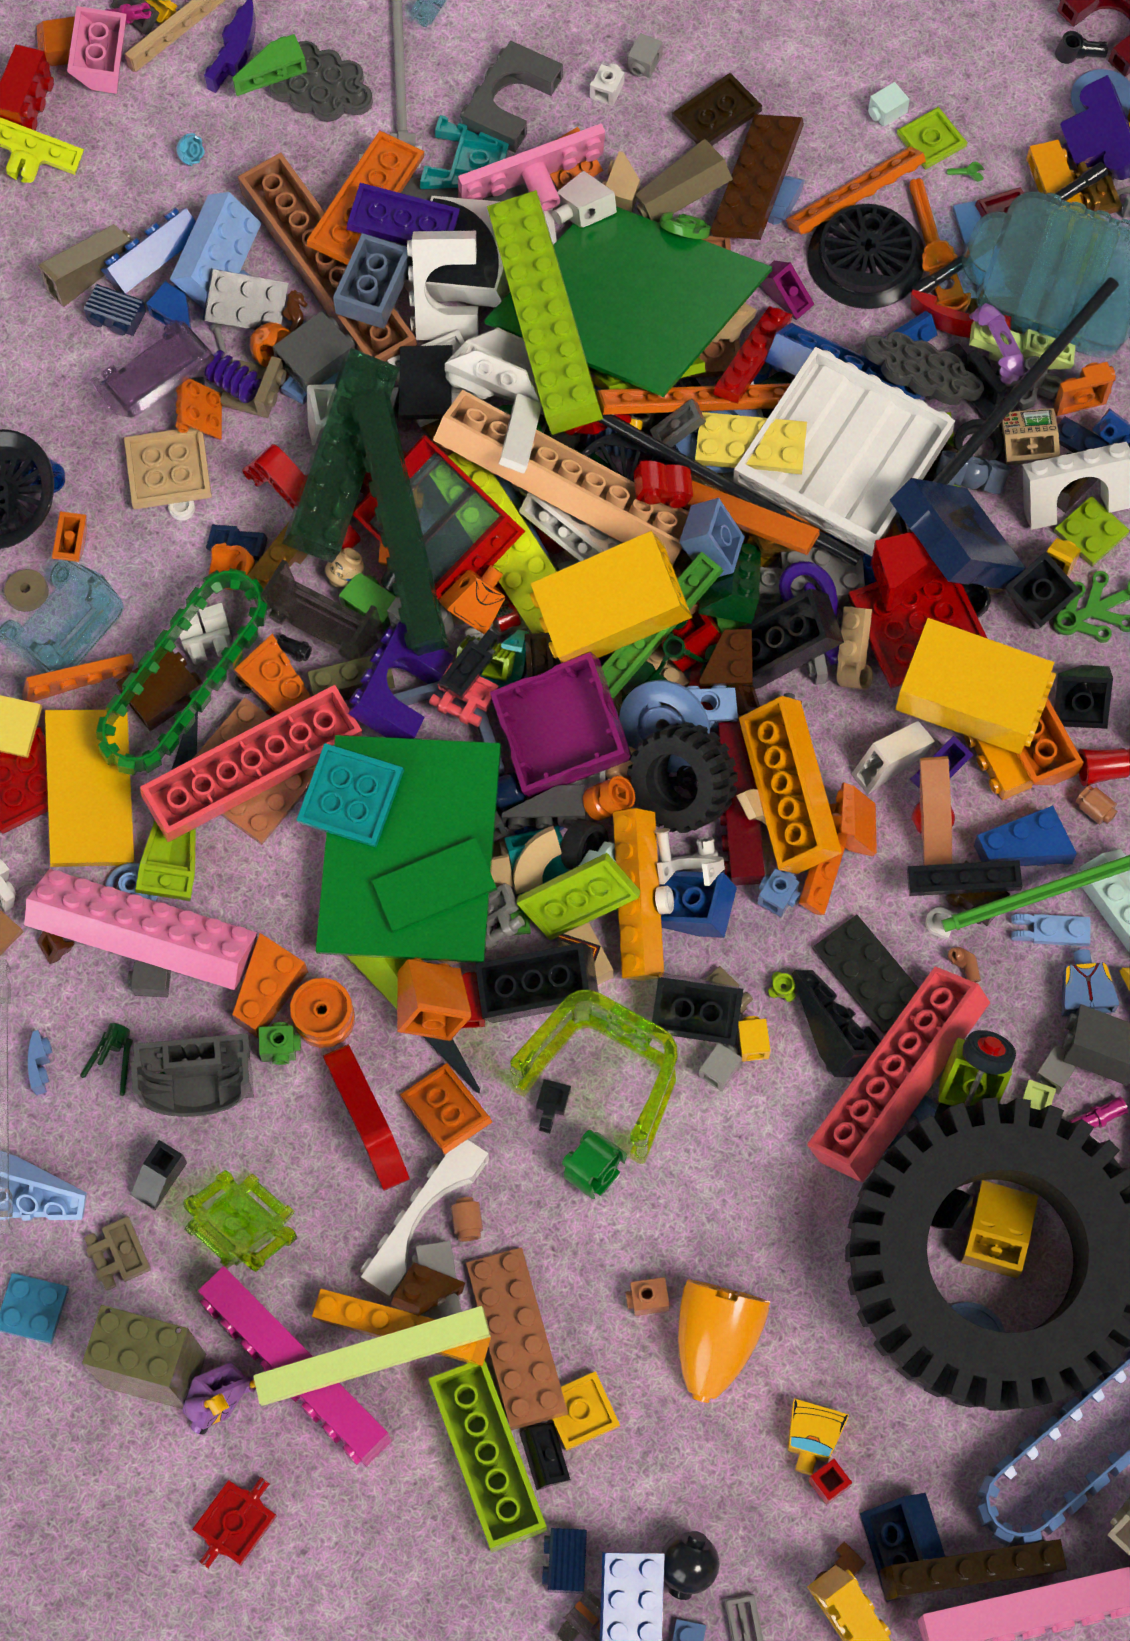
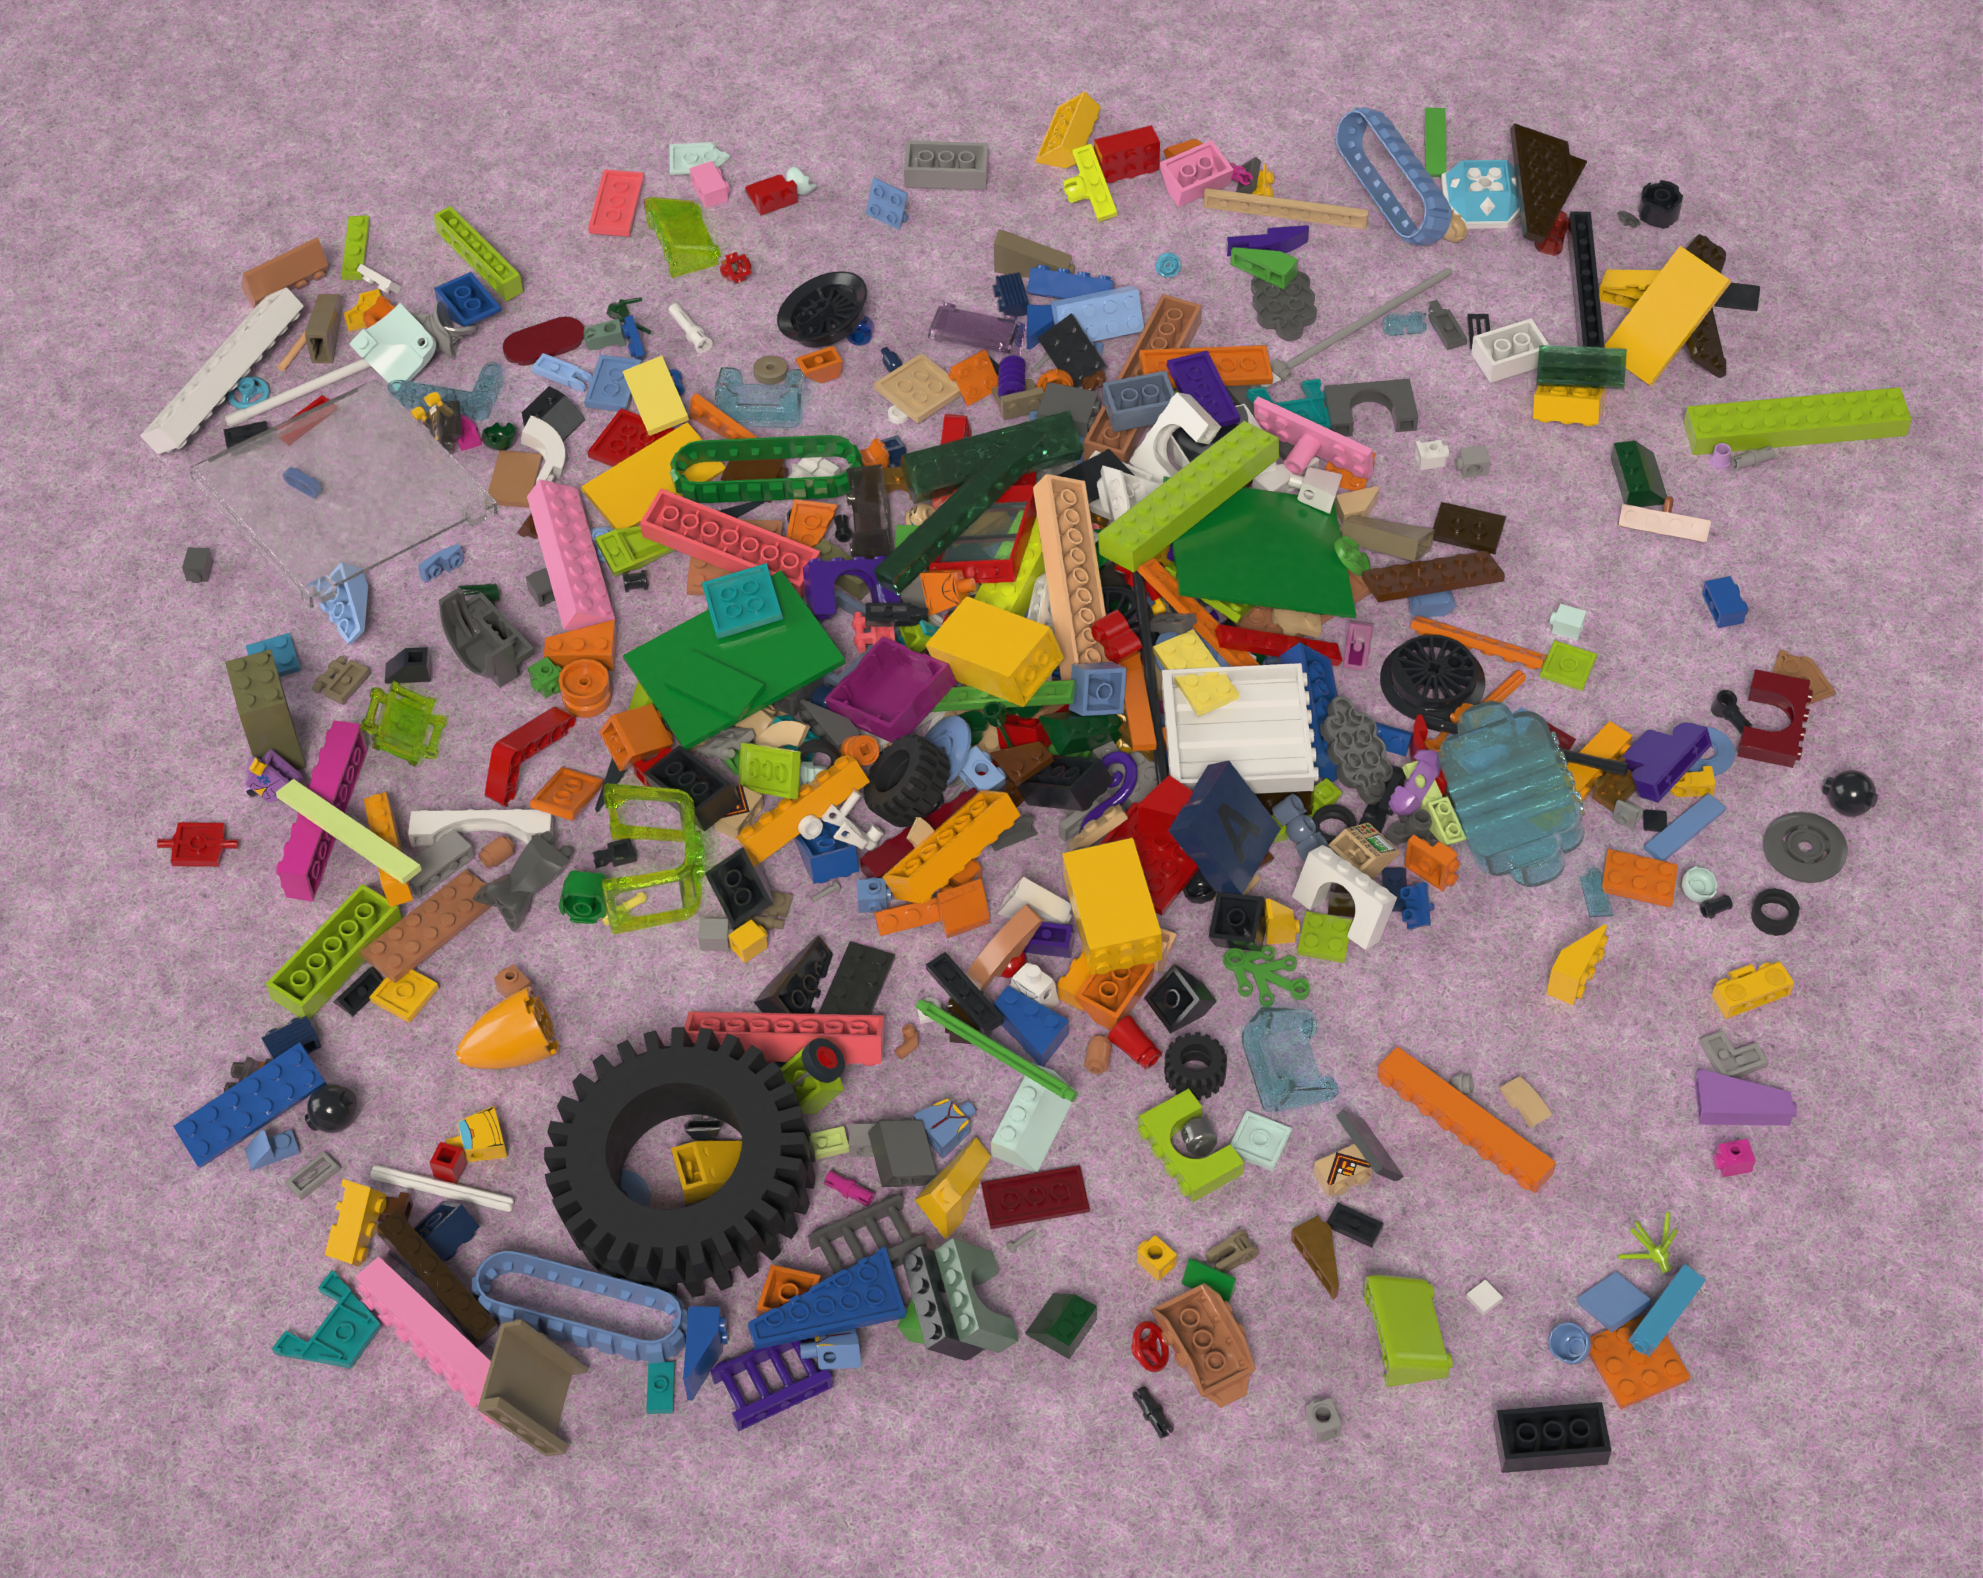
camera: 55 degrees right, 15 degrees down
(108, 471) = (890, 359): none -> dark blue cylinder
(211, 884) = (635, 577): none -> black bush
(424, 1289) = (420, 842): reddish brown wing -> none
(520, 433) = (1072, 528): white tile -> none
(522, 1198) = (532, 872): none -> dark grey hips
(621, 1131) = (628, 905): none -> light yellow piece
(735, 931) = (835, 886): none -> light grey piece
(776, 990) = (801, 936): lime plate -> none
(846, 1504) = (442, 1188): none -> white axle
(970, 170) = (1561, 702): bright green hand -> none
(987, 813) = (1036, 985): none -> white torso
(1027, 381) = (1390, 808): black piece -> none
(1053, 929) = (978, 1083): light blue hinge -> none

